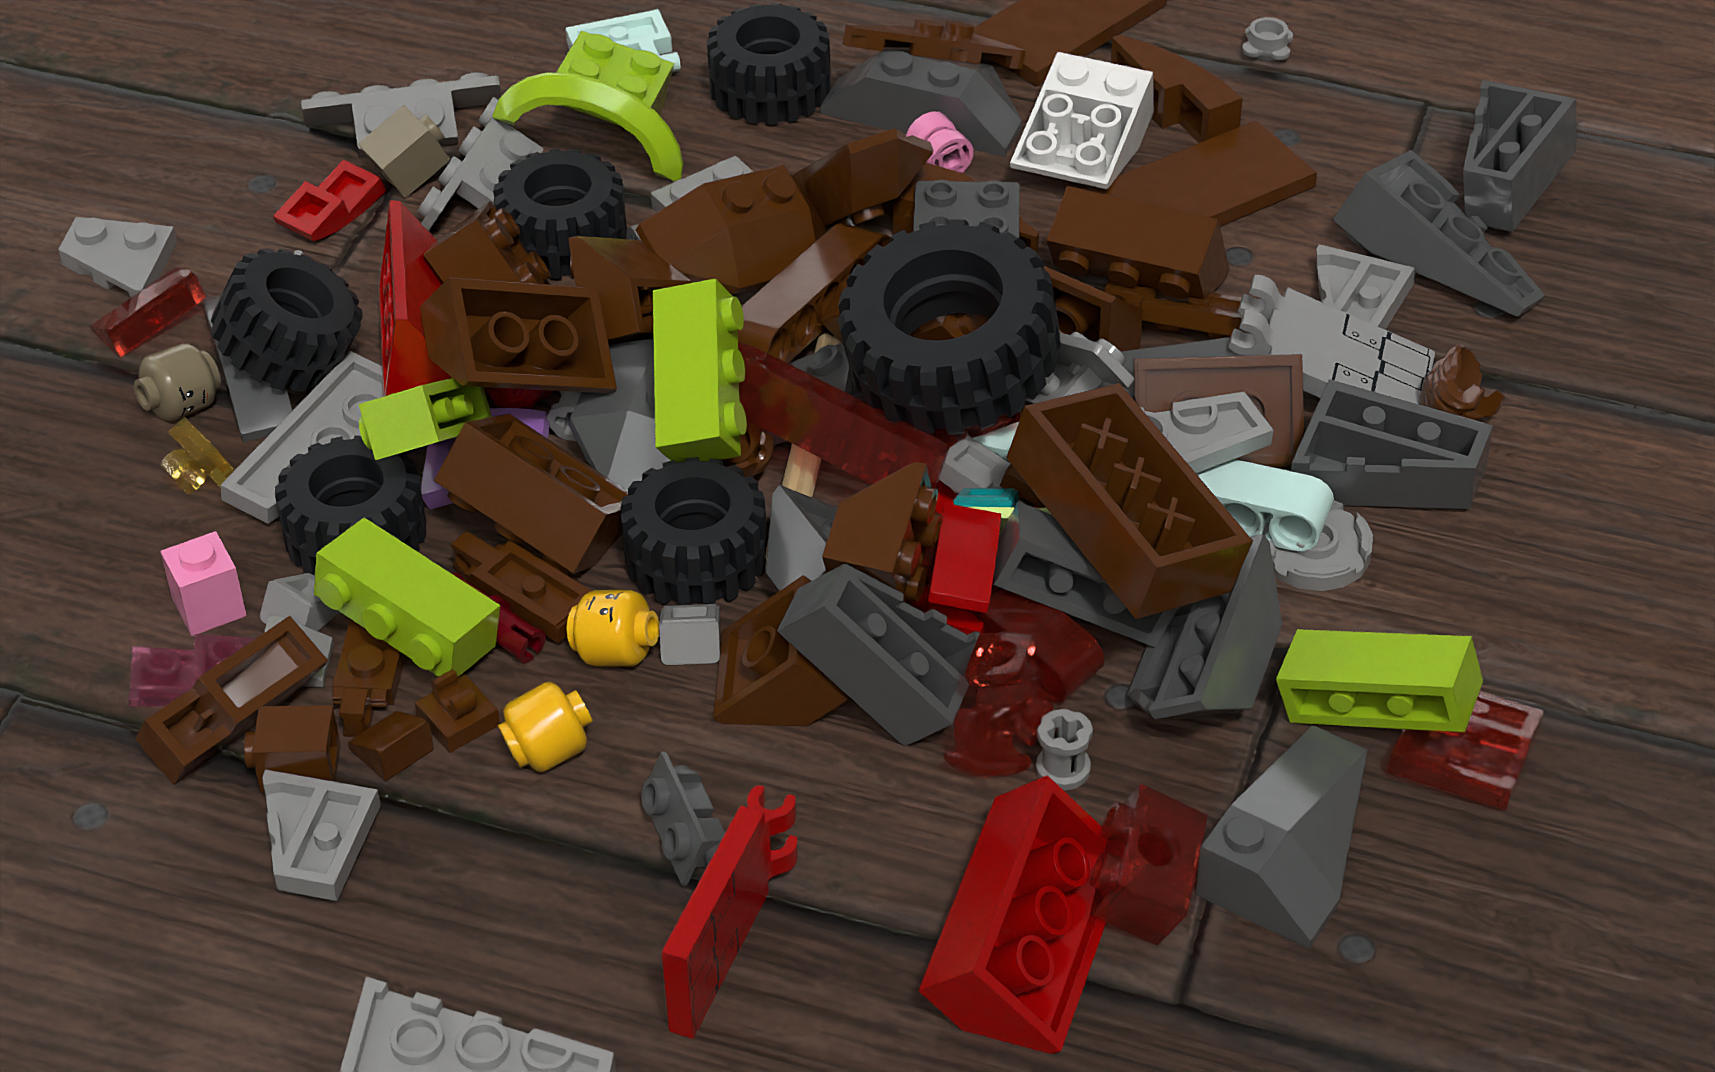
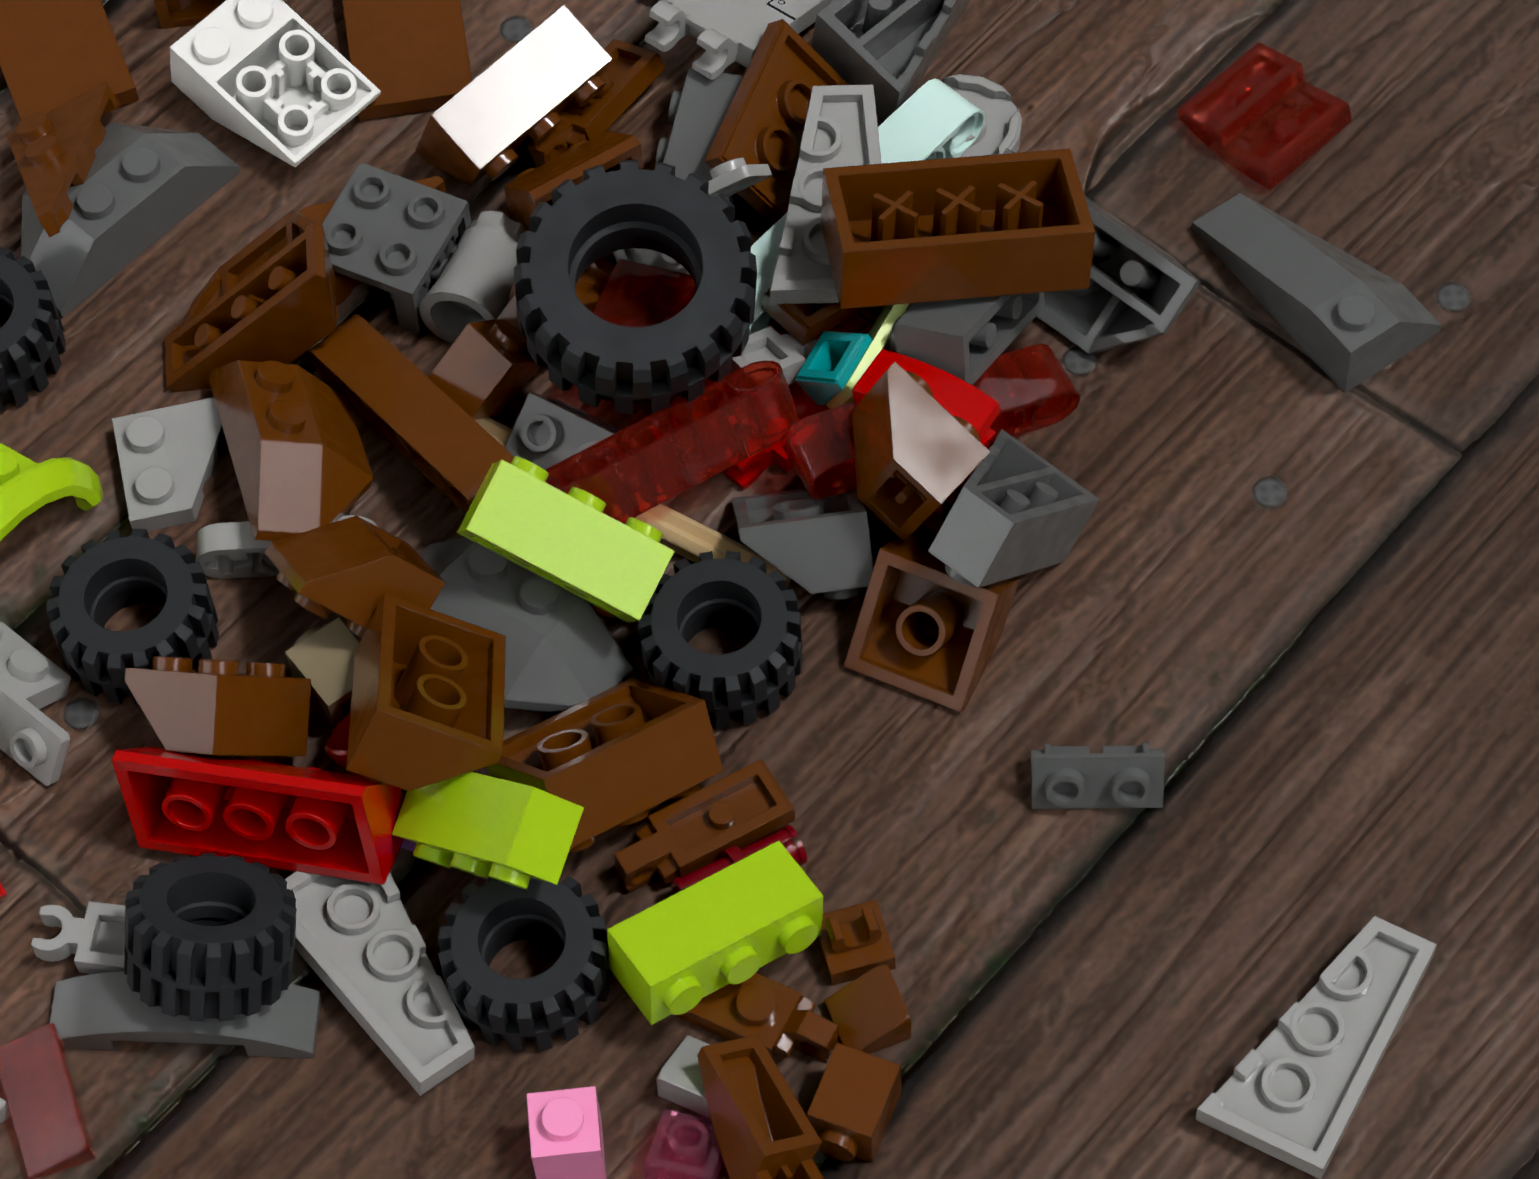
camera: 65 degrees left, 15 degrees up
(177, 382) = (204, 1092): dark tan head -> none
(195, 459) = (348, 1099): clear yellow tile -> none
(296, 598) = (621, 1054): light grey slope -> none
(316, 831) = (971, 1116): light grey wing -> none
(545, 727) = (928, 860): yellow head -> none
(612, 628) = (818, 758): yellow head -> none
(690, 634) = (834, 695): light grey slope -> none
(724, 909) = (1259, 762): red tile -> none
(950, 147) = (228, 219): bright pink wheel -> none
(1004, 705) = (1095, 429): clear red animal -> none
(1021, 922) = (1339, 531): red slope -> none
(1072, 740) = (1152, 423): light grey bush -> none
(1147, 864) = (1330, 406): clear red brick -> none
(1380, 680) = (1197, 139): lime brick -> none

